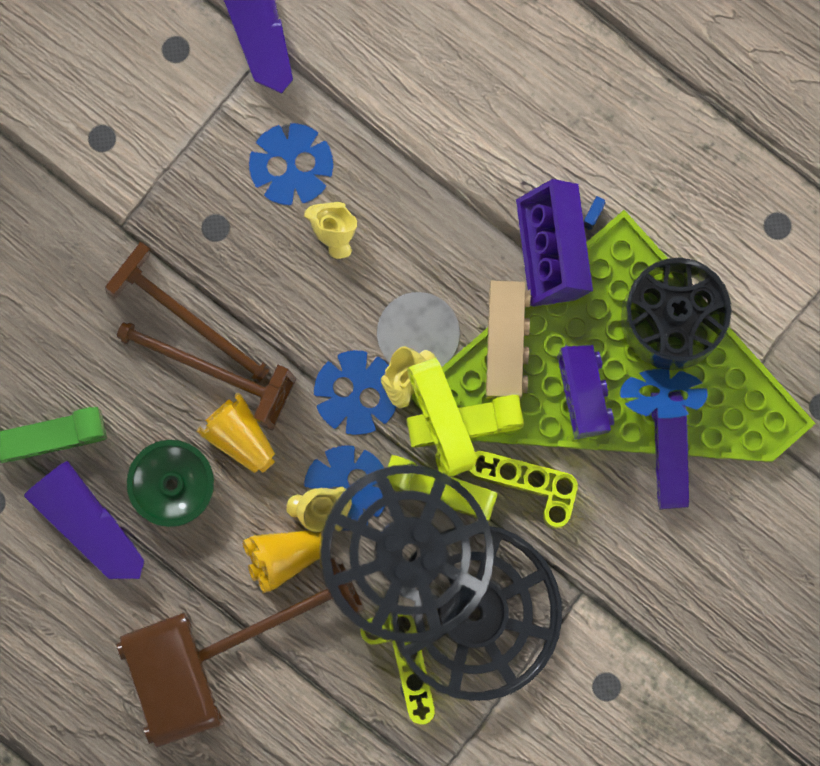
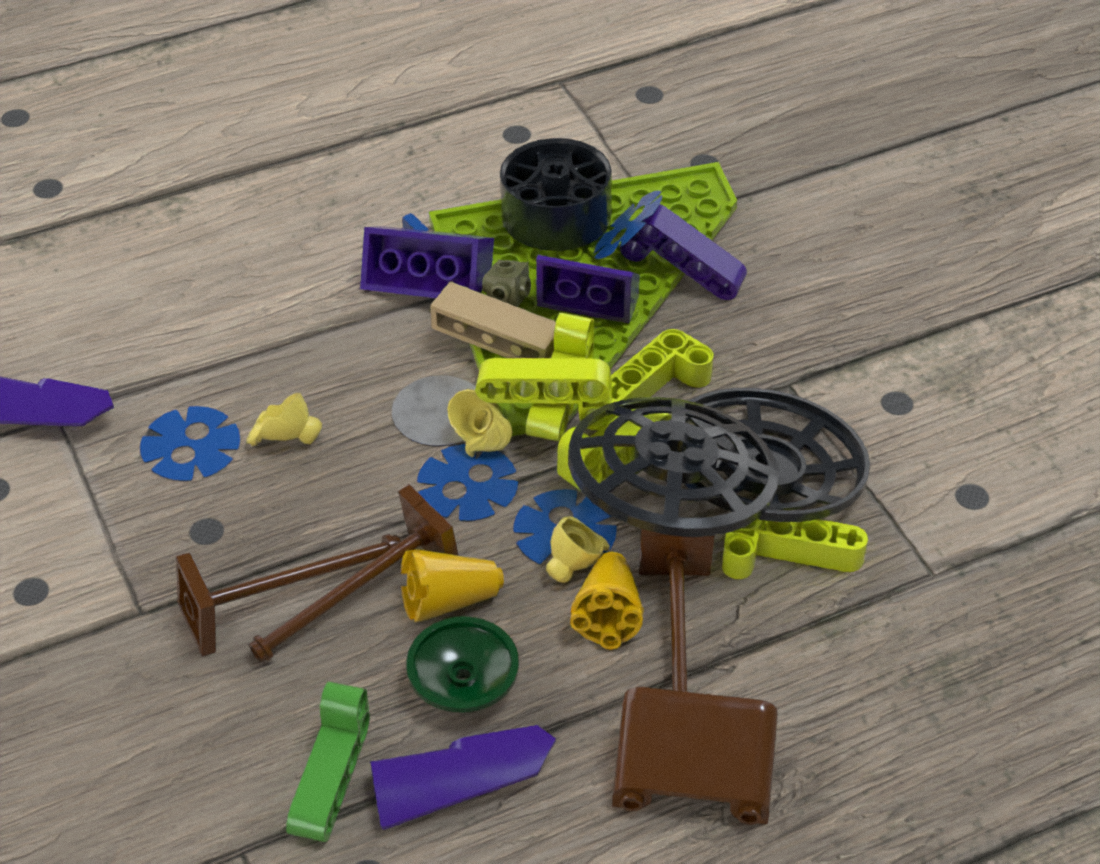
camera: 60 degrees left, 35 degrees down
(553, 326) = (508, 281): none -> olive brick

